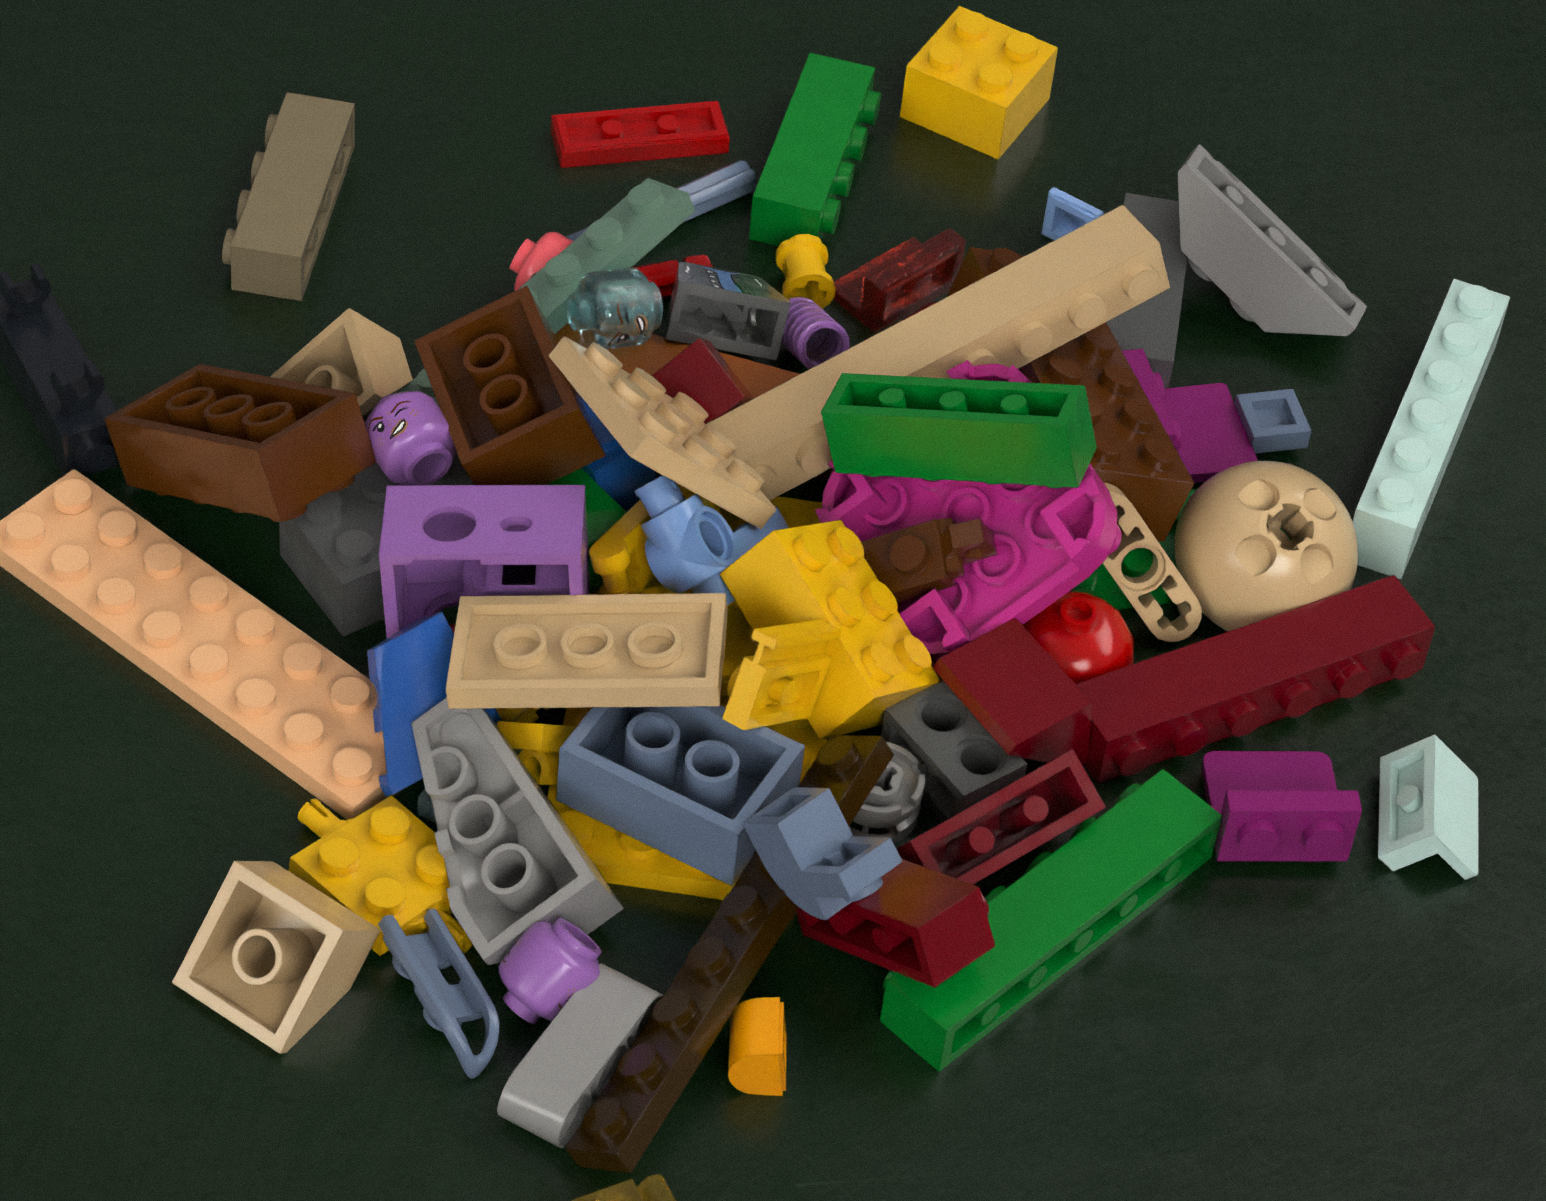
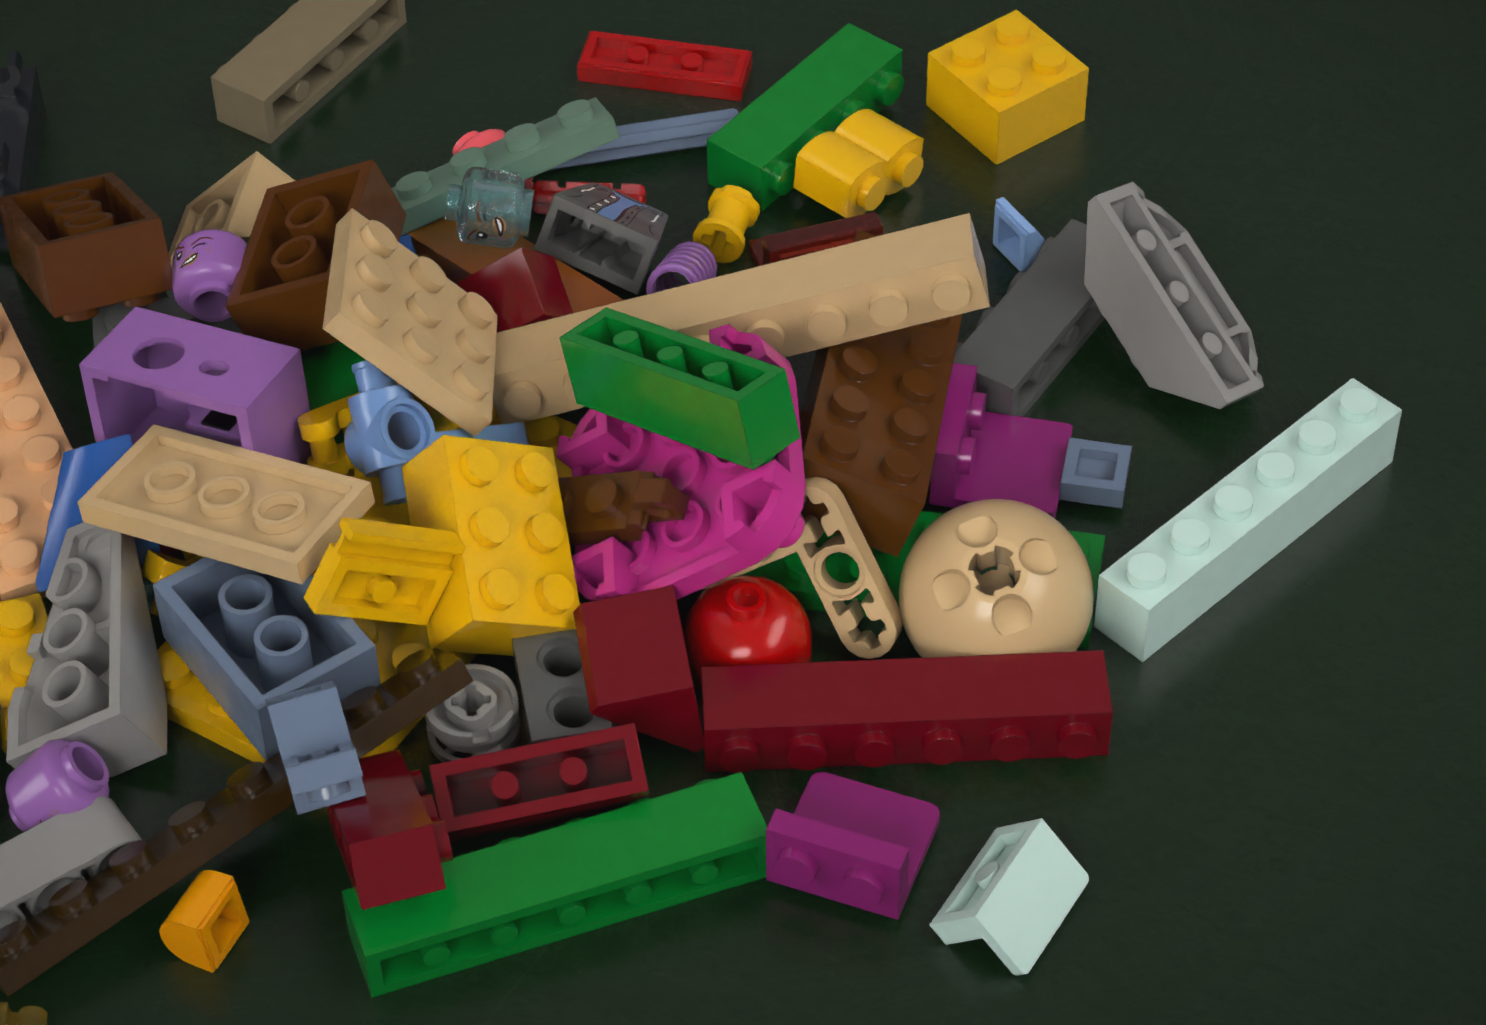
camera: 30 degrees right, 0 degrees up
(894, 187) = (858, 163): none -> yellow brick

